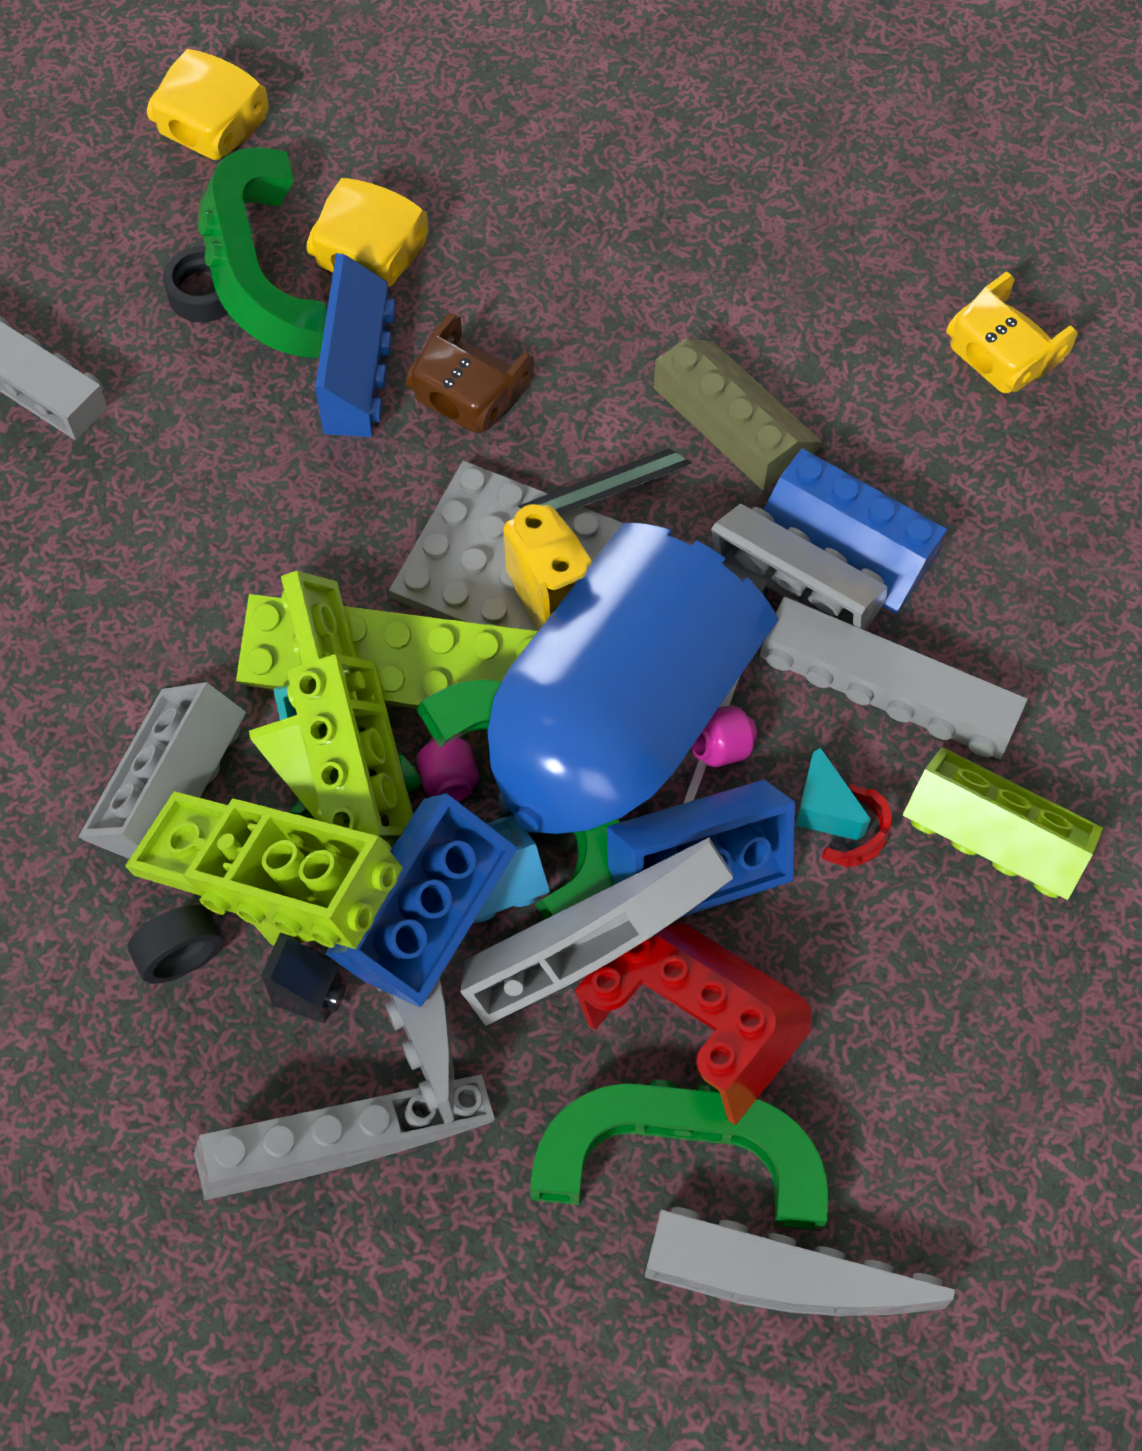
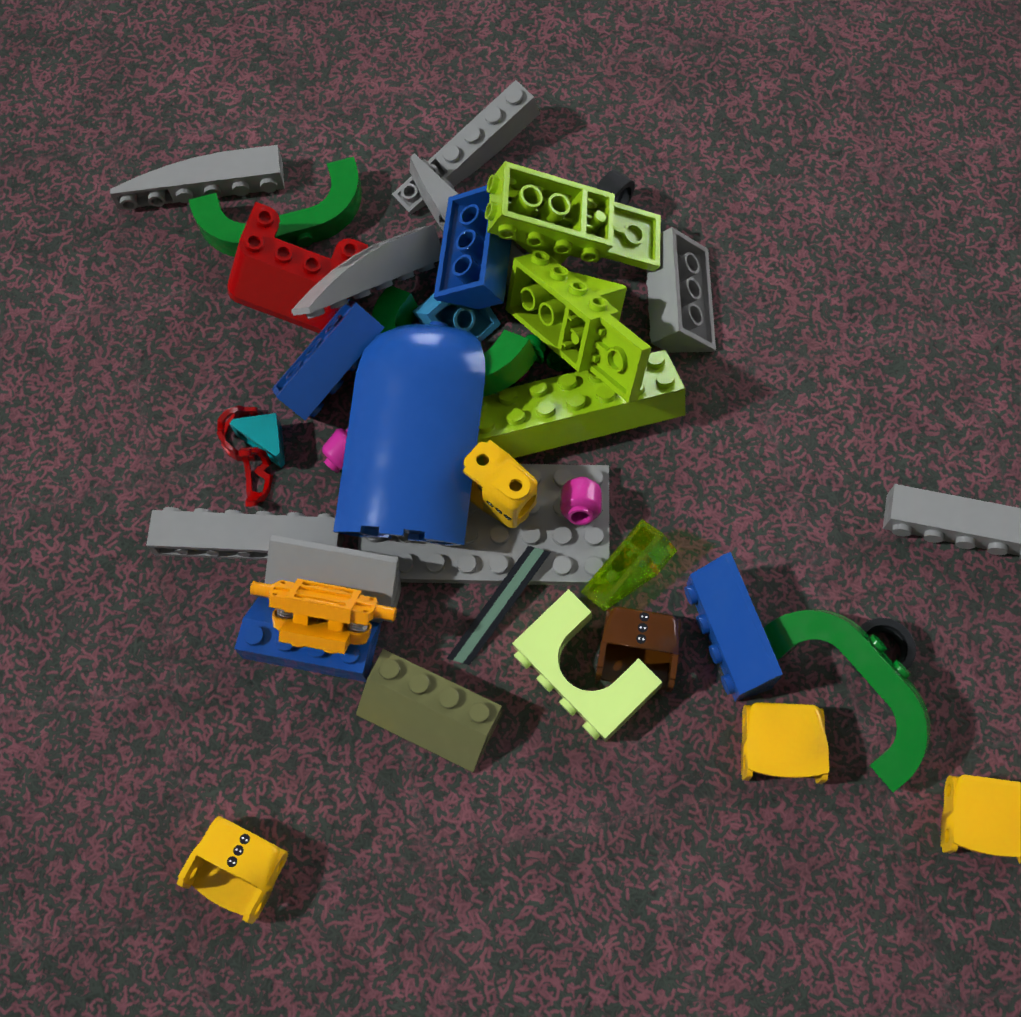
camera: 160 degrees right, 5 degrees up
(433, 454) = (630, 566): none -> clear neon green slope
(451, 537) = (581, 500): none -> dark pink head
(552, 429) = (601, 709): none -> yellowish green arch
(828, 499) = (321, 614): none -> light orange piece
(863, 748) = (253, 497): none -> red helmet
(1003, 823) = (144, 469): slope -> none

